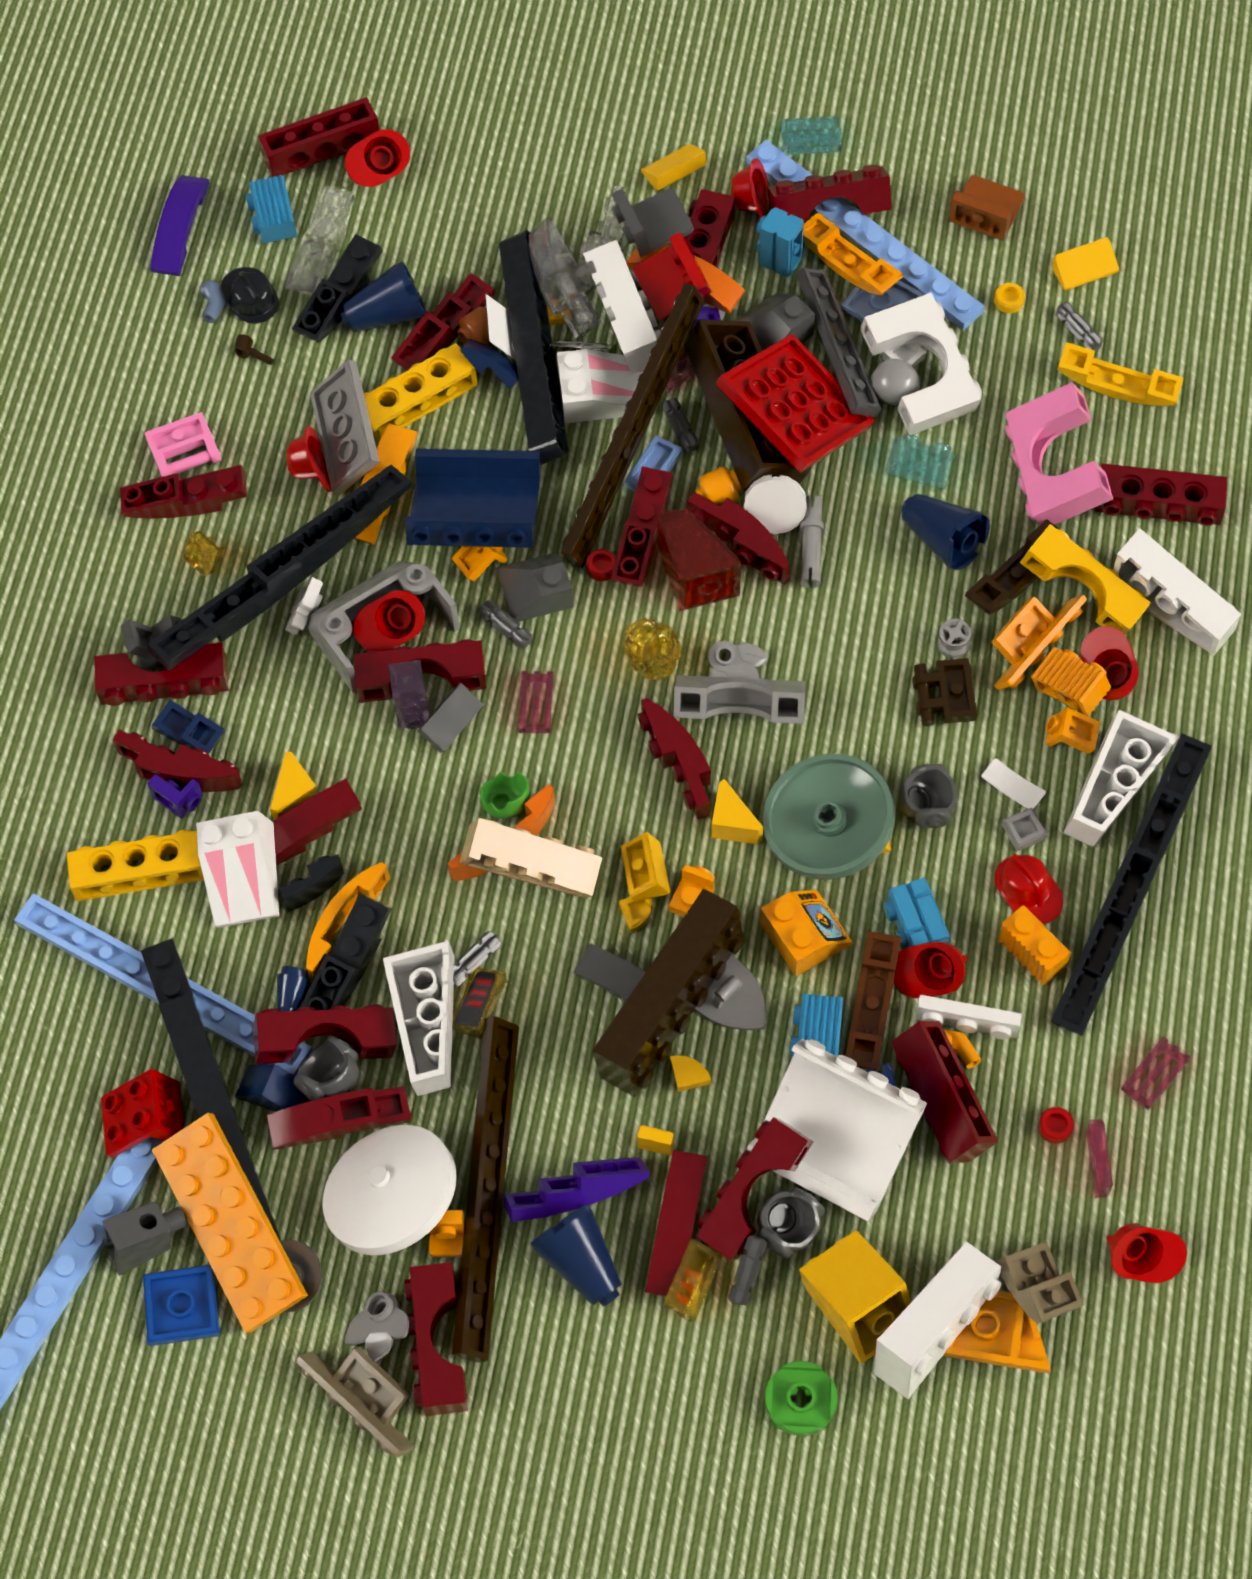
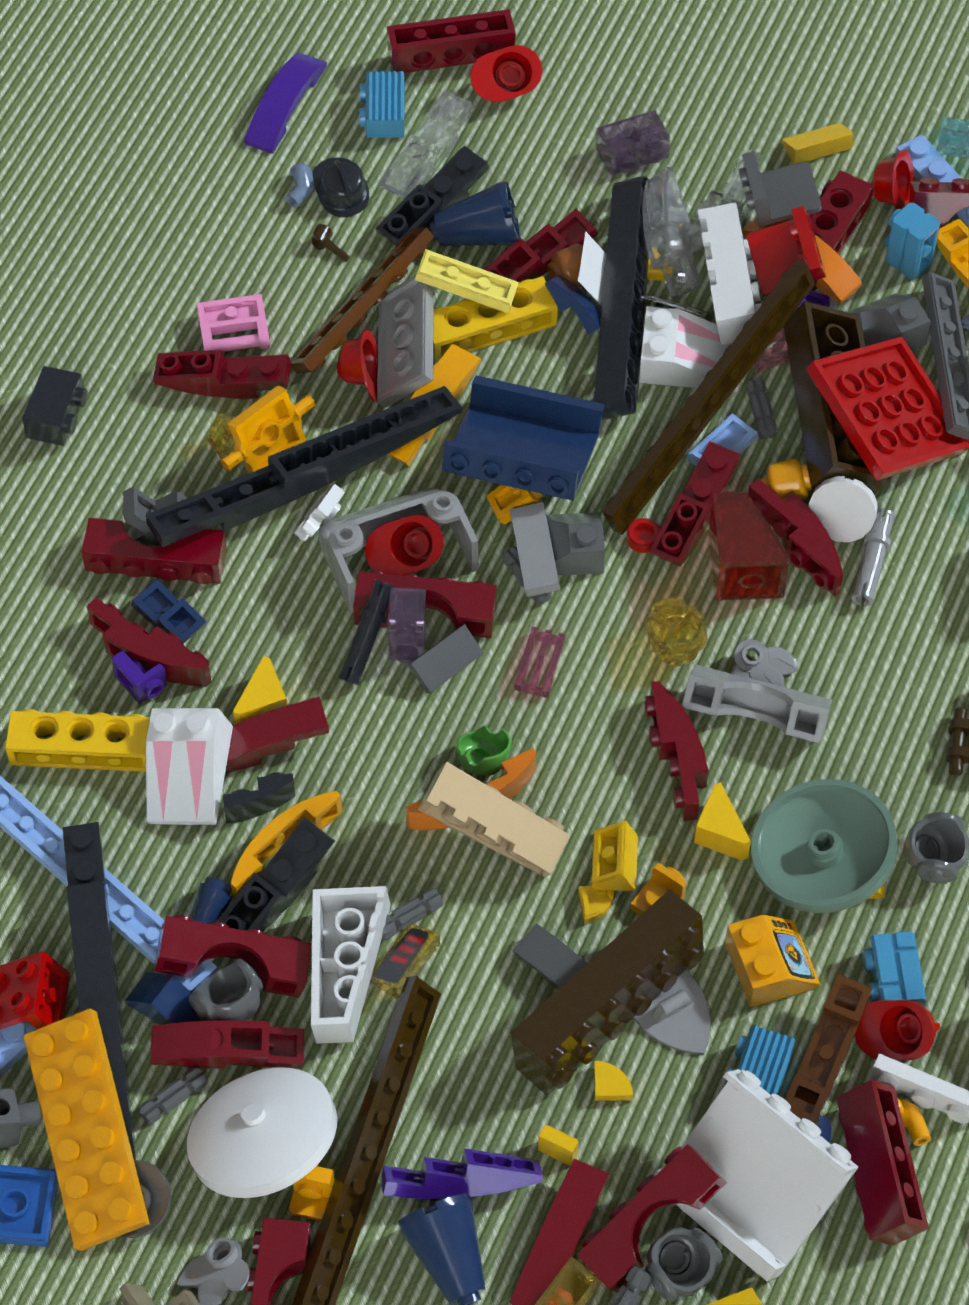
camera: 10 degrees right, 5 degrees down
(36, 557) = (54, 406): none -> black brick
(238, 540) = (266, 429): none -> light orange plate
(299, 1173) = (172, 1095): none -> dark grey axle
(300, 391) = (354, 309): none -> reddish brown plate
(374, 709) = (366, 633): none -> black pin
(388, 362) = (466, 281): none -> light yellow tile
(507, 200) = (632, 143): none -> clear purple brick
(508, 599) = (535, 549): none -> light grey tile

